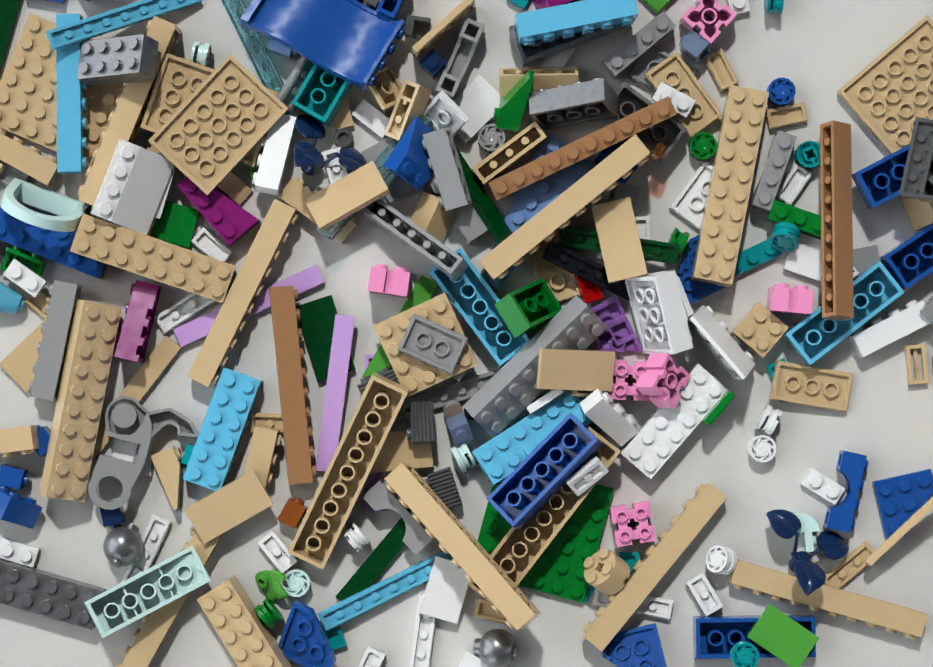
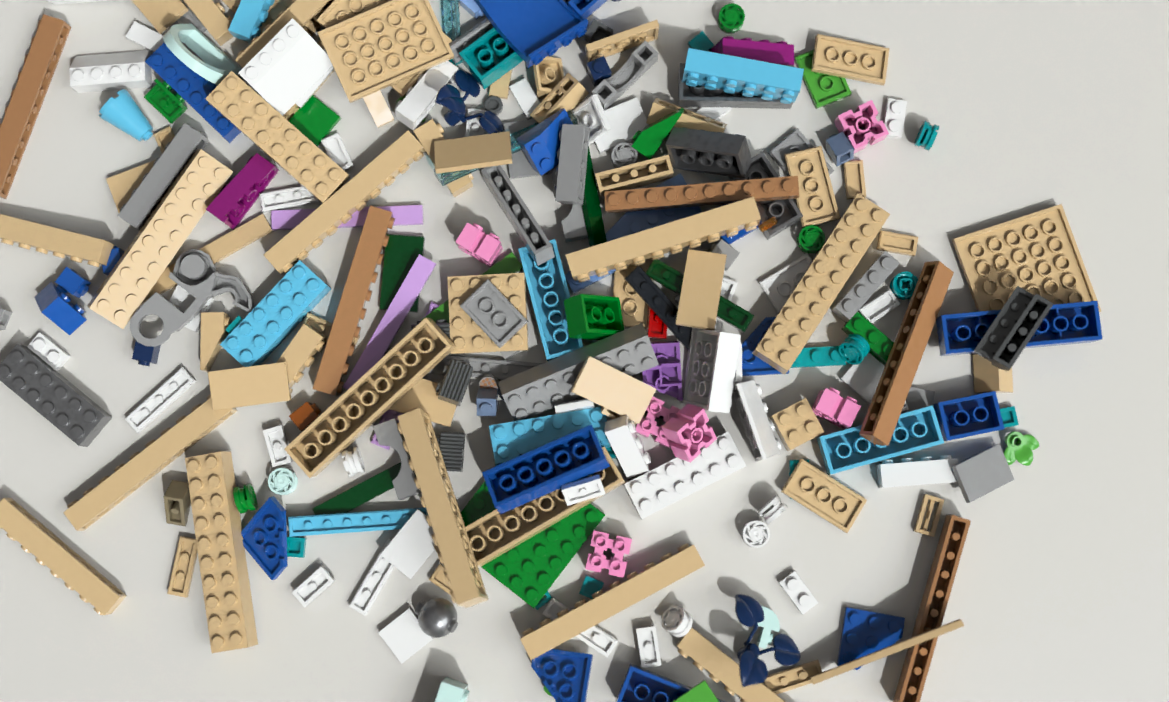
camera: 30 degrees right, 5 degrees down
(25, 278) = (161, 112): white plate -> none
(123, 545) = (142, 383): flat silver brick -> none
(147, 591) = (141, 432): light aqua slope -> none
(206, 643) = (177, 503): none -> dark tan slope
(222, 213) = (358, 127): magenta wedge -> none
(271, 585) = (258, 473): bright green plate -> none
(433, 217) = (543, 205): tan slope -> none
(460, 455) = (478, 427): light aqua wheel -> none
(606, 571) = (566, 587): tan brick -> none
(638, 44) = (777, 129): light grey arch -> none
(679, 238) = (758, 313): green wheel -> none
(680, 101) = (807, 191): white plate -> none
(718, 408) = (729, 479): green tile -> none
(781, 92) = (901, 219): blue wheel -> none
(841, 515) = (832, 586): blue arch -> none

